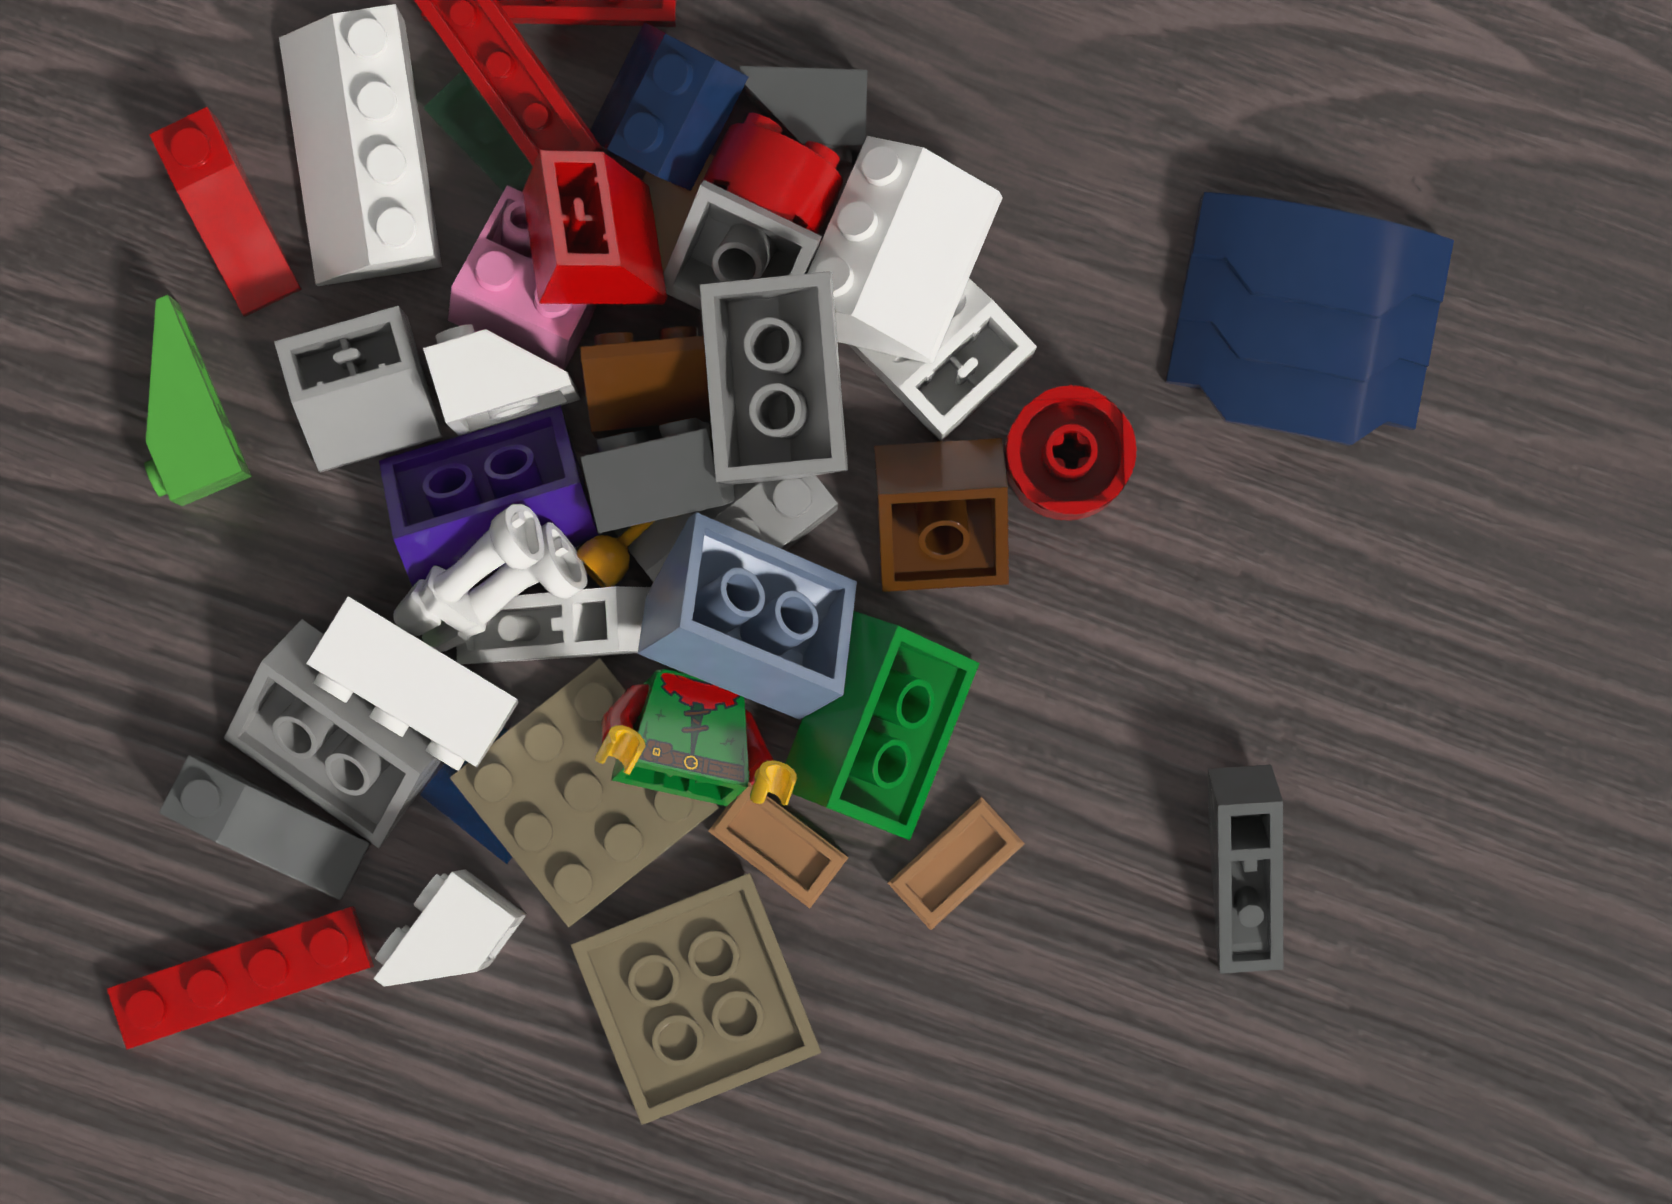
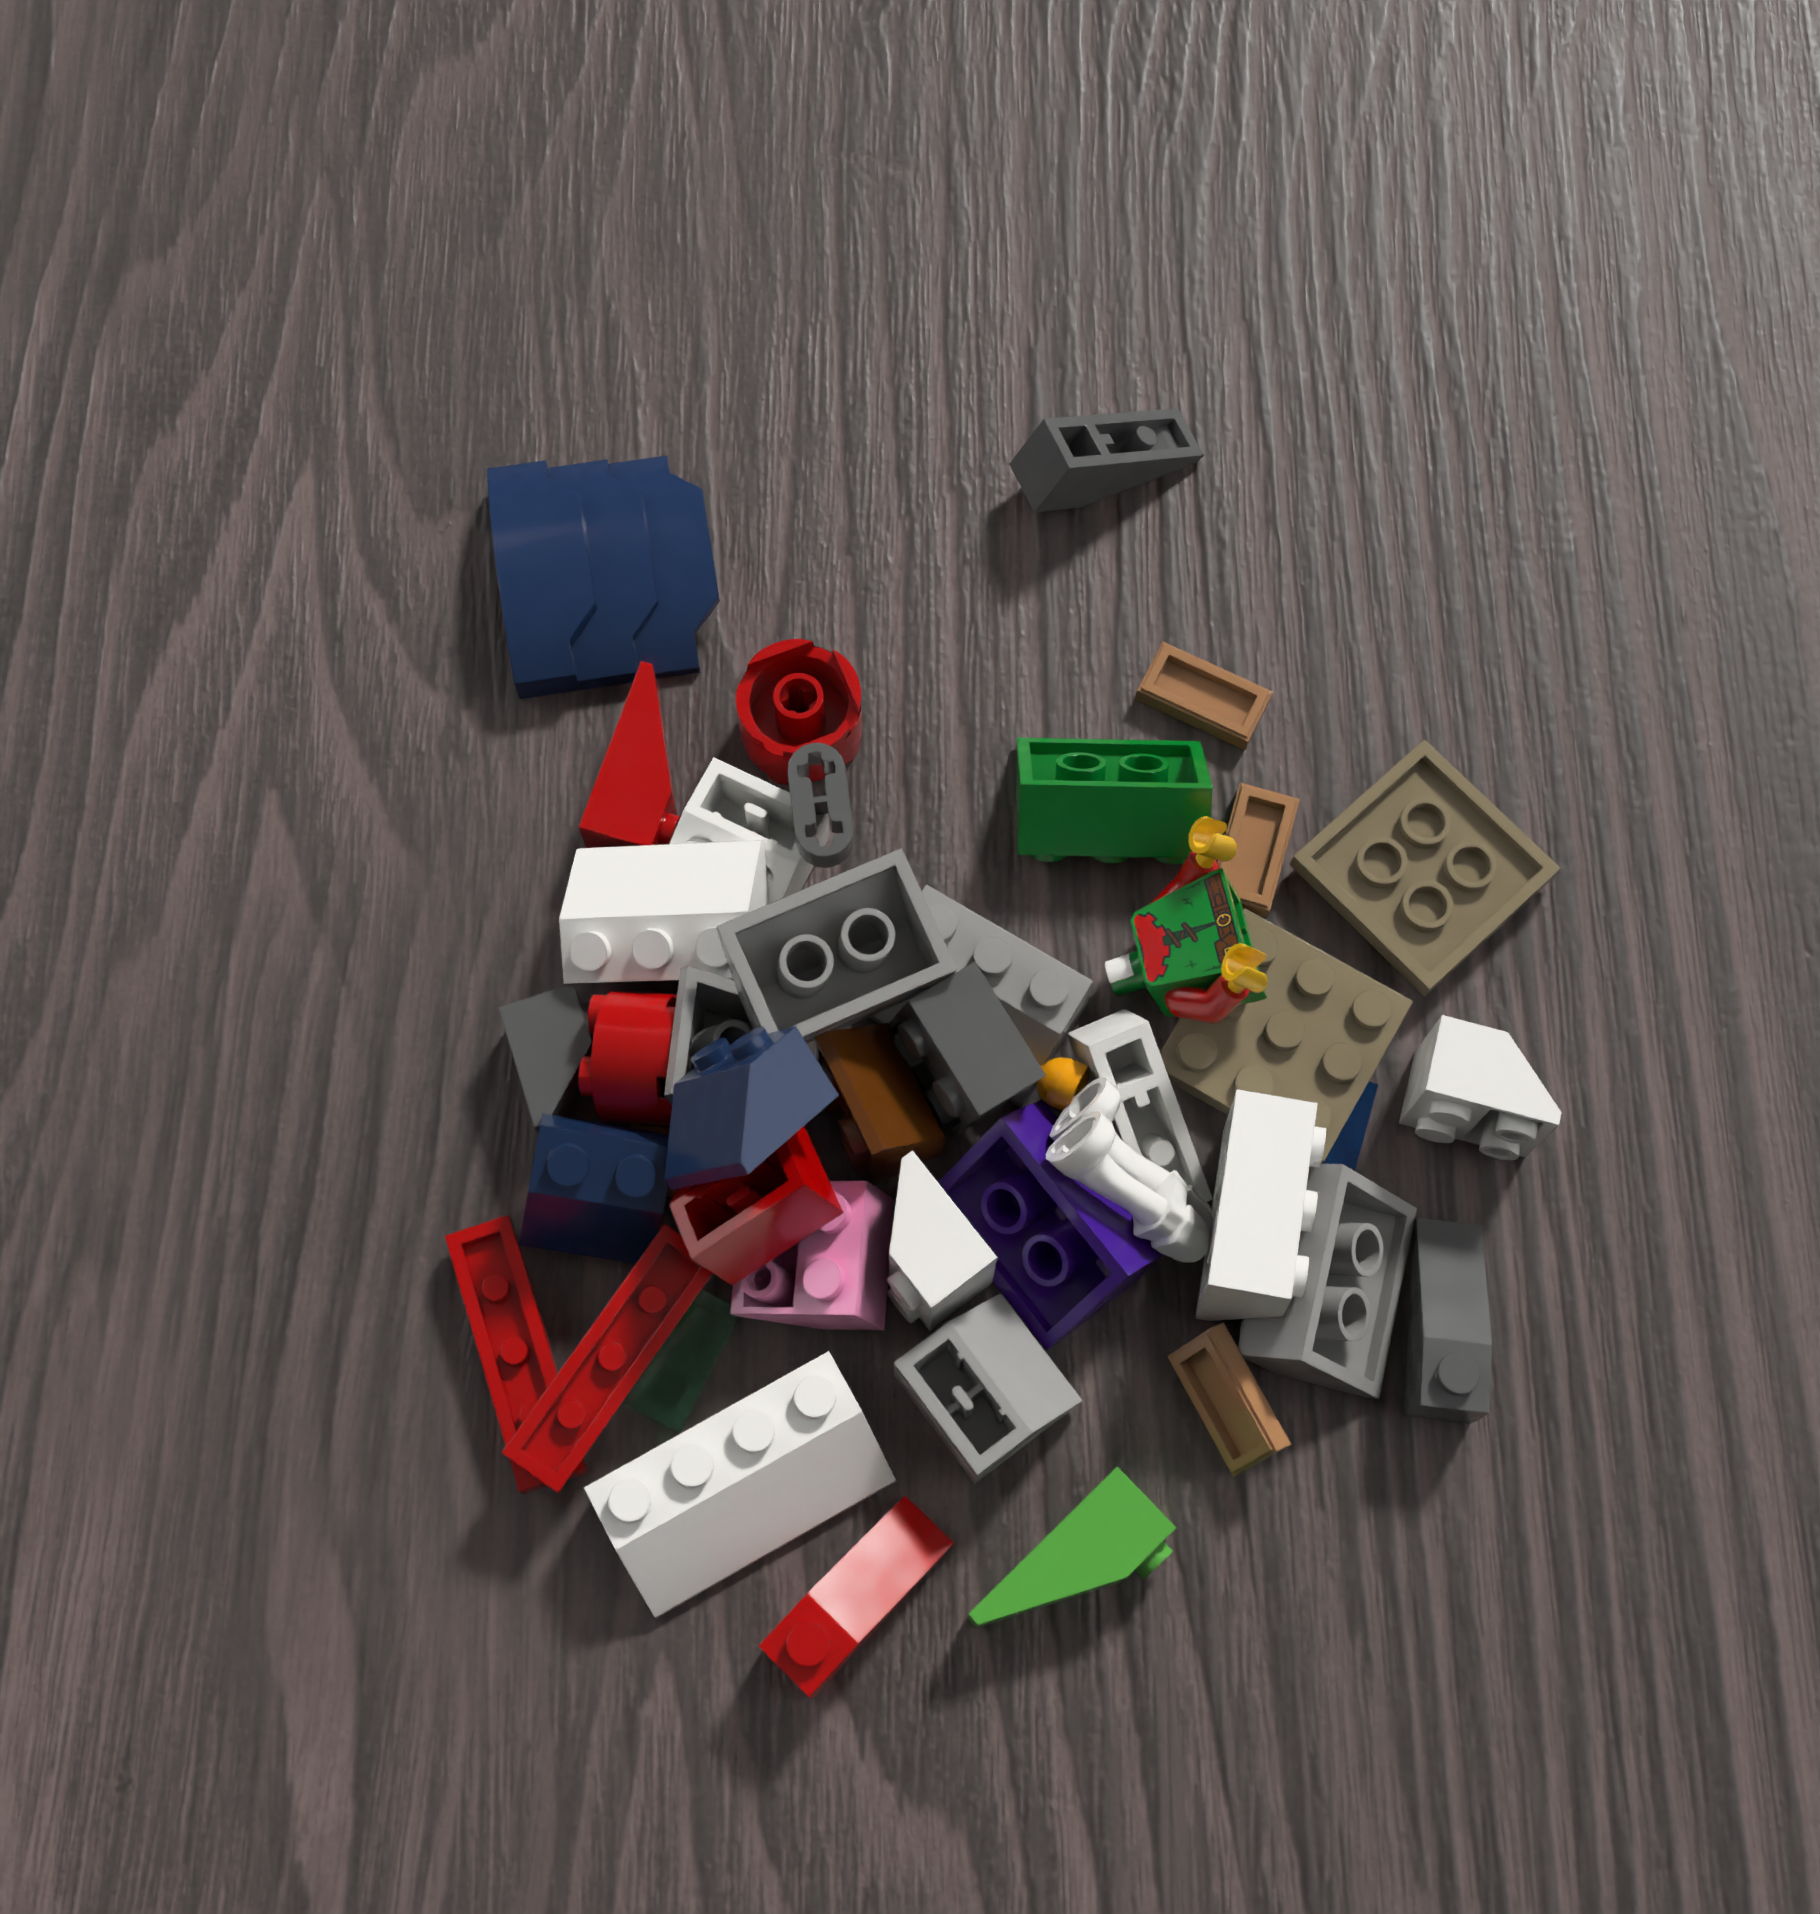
camera: 110 degrees left, 15 degrees down
(240, 977) = (1599, 1294): red plate -> none
(268, 598) = (1228, 1399): none -> medium nougat tile
(652, 237) = (742, 1105): none -> dark blue slope
(750, 618) = (1067, 917): sand blue slope -> none
(942, 514) = (903, 800): reddish brown slope -> none
(947, 410) = (806, 807): none -> dark grey beam
(1056, 276) = (634, 786): none -> red slope

